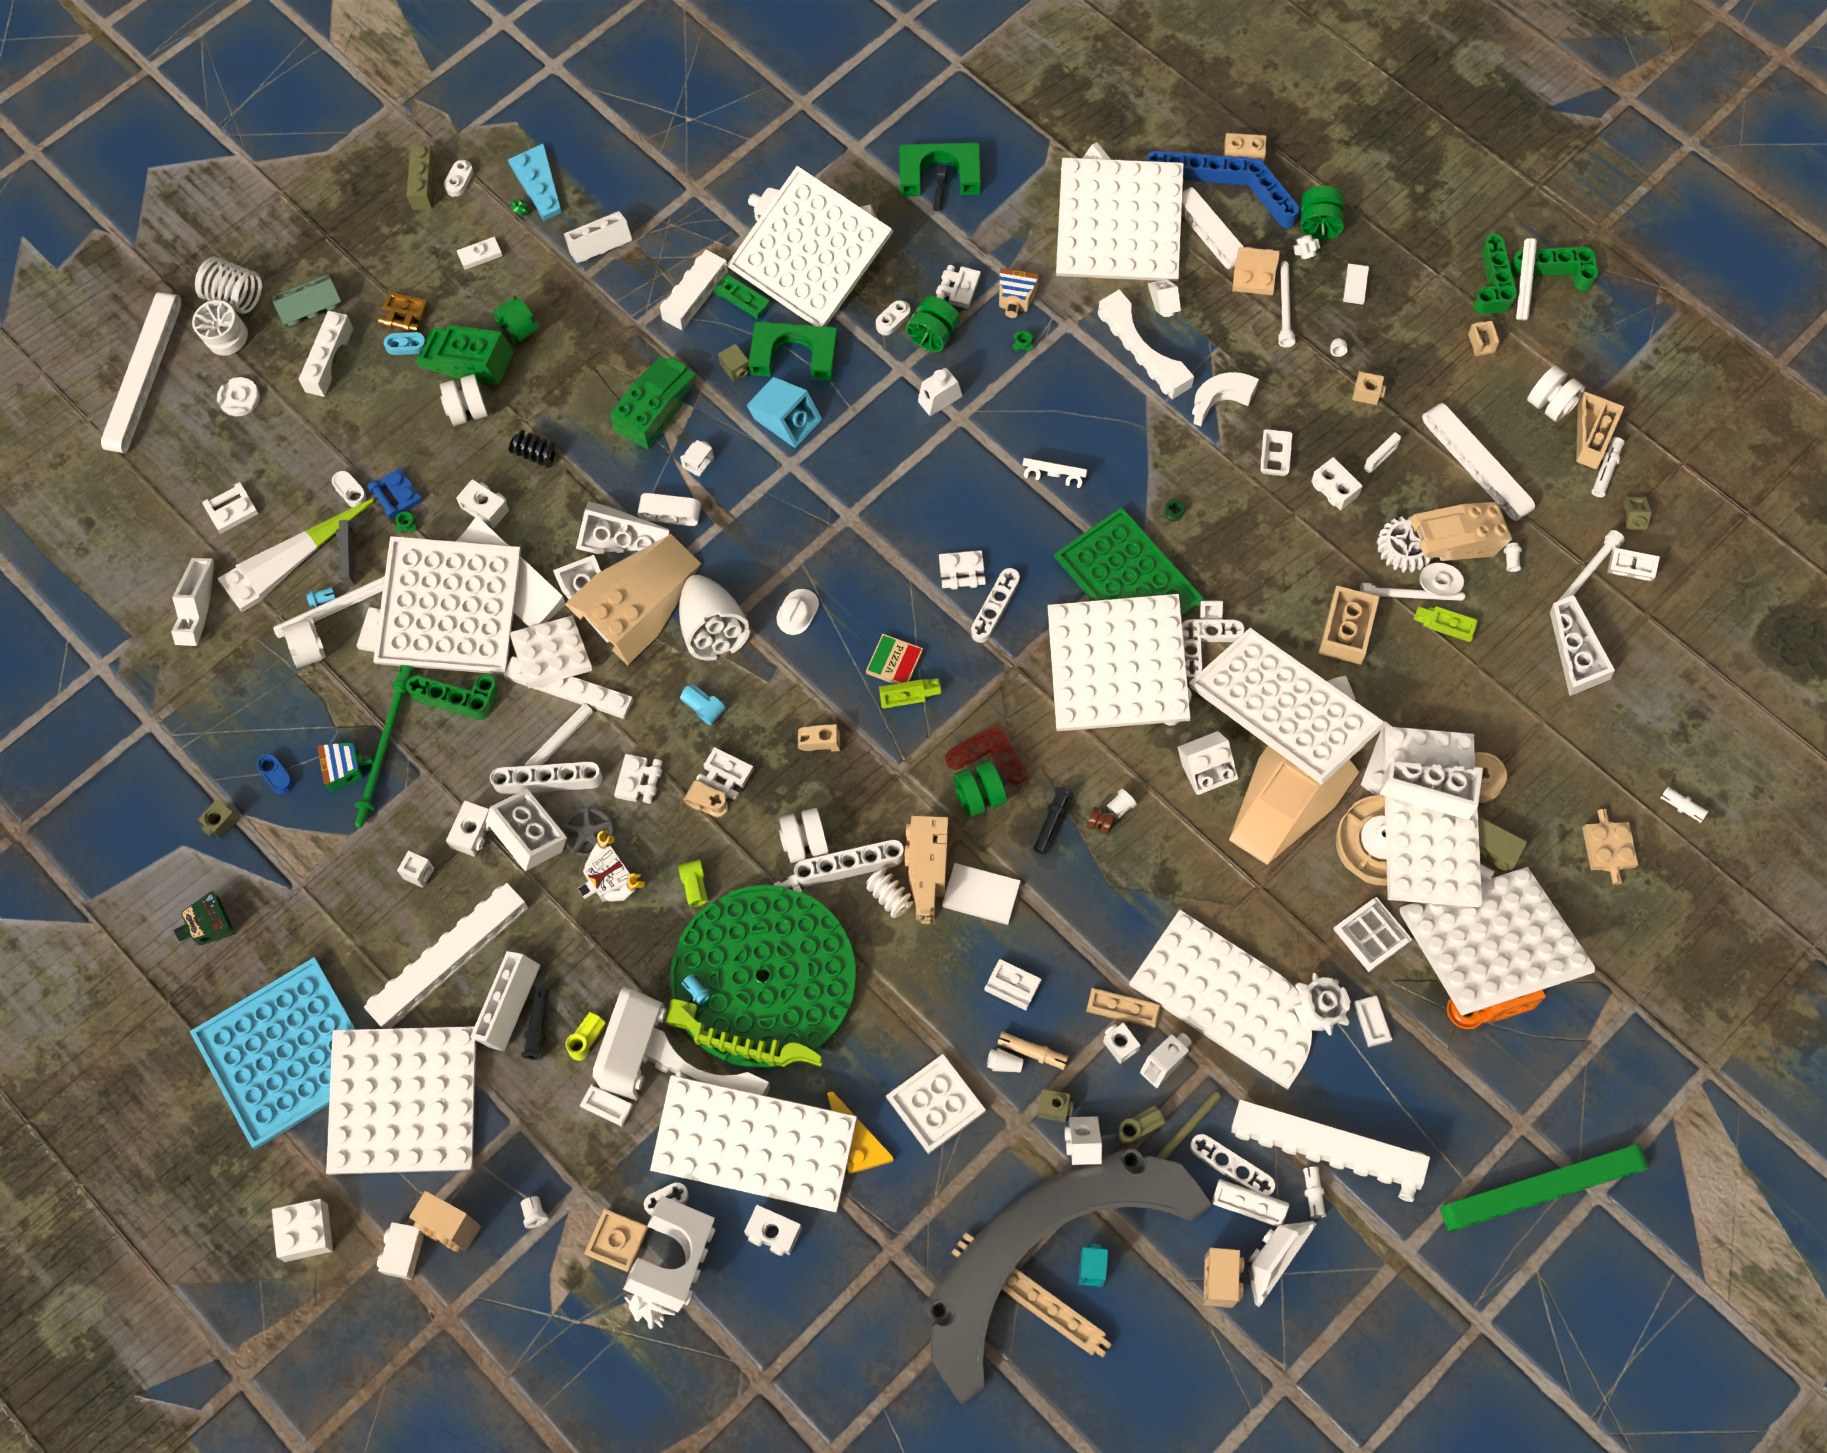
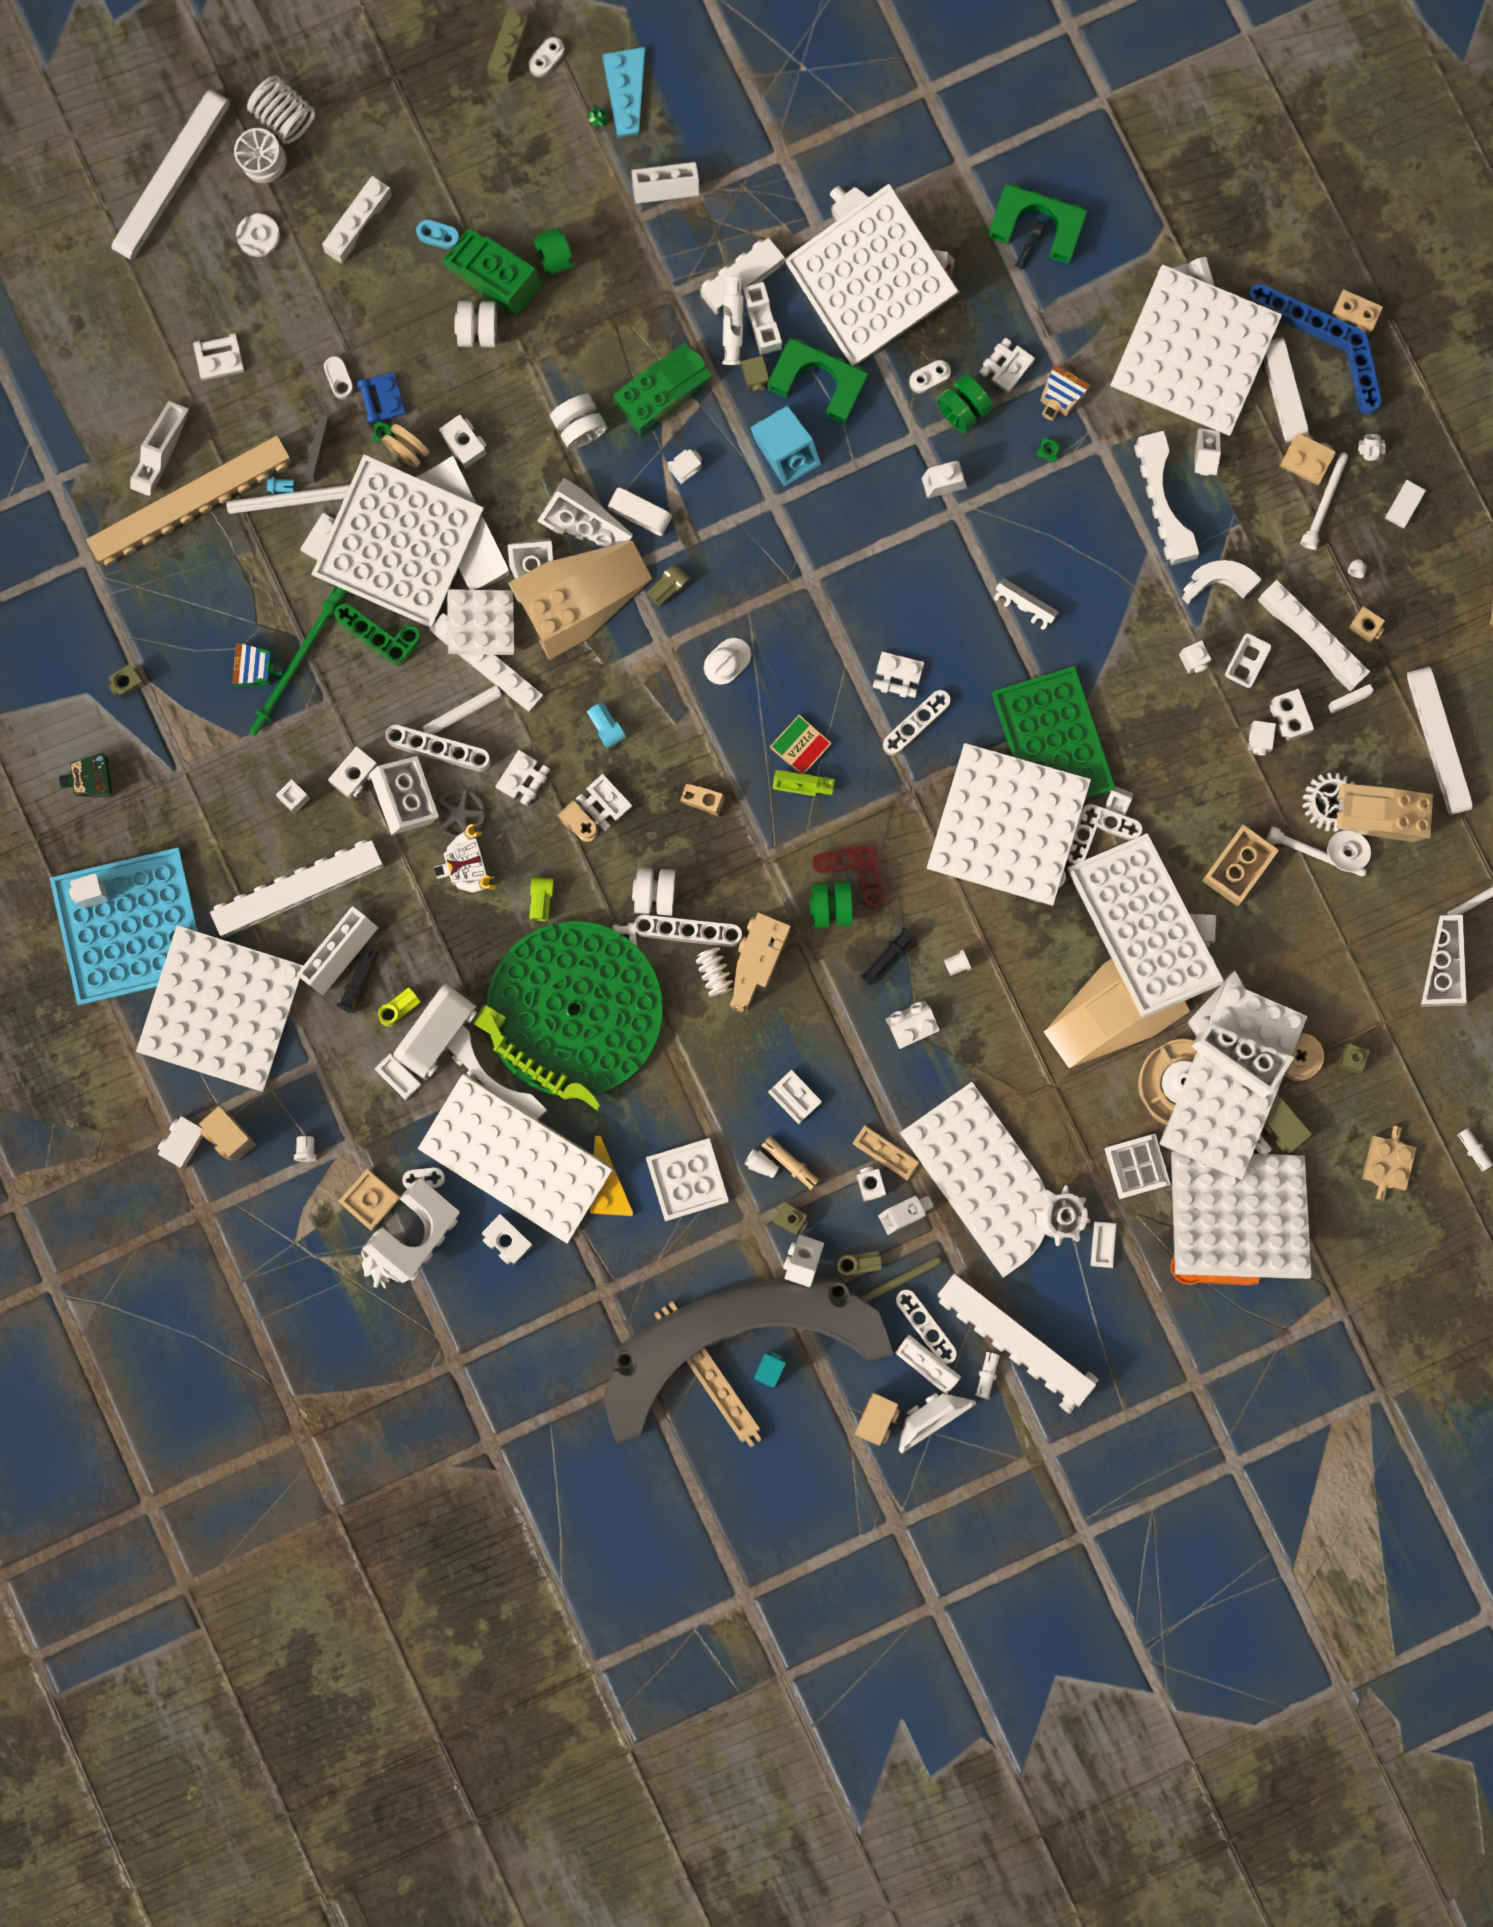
camera: 15 degrees right, 15 degrees up
(230, 1026) = (88, 891): none -> white brick
(235, 639) = (189, 501): none -> tan brick
(263, 572) = (231, 438): white plate -> none
(277, 777) = (189, 657): blue piece -> none
(302, 1230) = (102, 1094): white brick -> none
(303, 642) = (250, 531): white brick -> none
(306, 300) = (353, 148): sand green slope -> none
(404, 306) = (448, 191): pearl gold plate -> none
(429, 521) = (405, 446): none -> tan wheel
(479, 253) = (541, 154): white plate -> none
(533, 449) = (528, 399): black piece -> none
(585, 449) = (578, 421): none -> white wheel
(696, 990) = (509, 1002): medium azure pin -> none
(697, 320) = (733, 316): none -> white piece
(710, 619) = (640, 642): white cylinder -> none
(720, 558) = (673, 580): none -> olive piece
(730, 324) = (761, 318): none -> white arch
(742, 296) = (788, 300): green plate -> none
(981, 893) = (798, 1001): white tile -> none
(1100, 875) = (912, 1024): none -> white bracket
(1101, 820) = (932, 972): reddish brown wheel -> none
(1168, 510) = (1131, 685): dark green bush -> none
(1208, 762) = (1053, 952): white slope -> none
(1228, 464) = (1195, 657): none -> white brick
(1290, 396) = (1299, 619): none -> white arch
(1317, 511) = (1261, 737): none -> white brick
(1322, 212) = (1402, 416): green wheel -> none
(1447, 622) = (1336, 894): lime hinge -> none
(1513, 557) = (1428, 851): white pin -> none
(1532, 760) = (1353, 1058): none -> olive brick
(1544, 1187) = (1188, 1443): green beam -> none

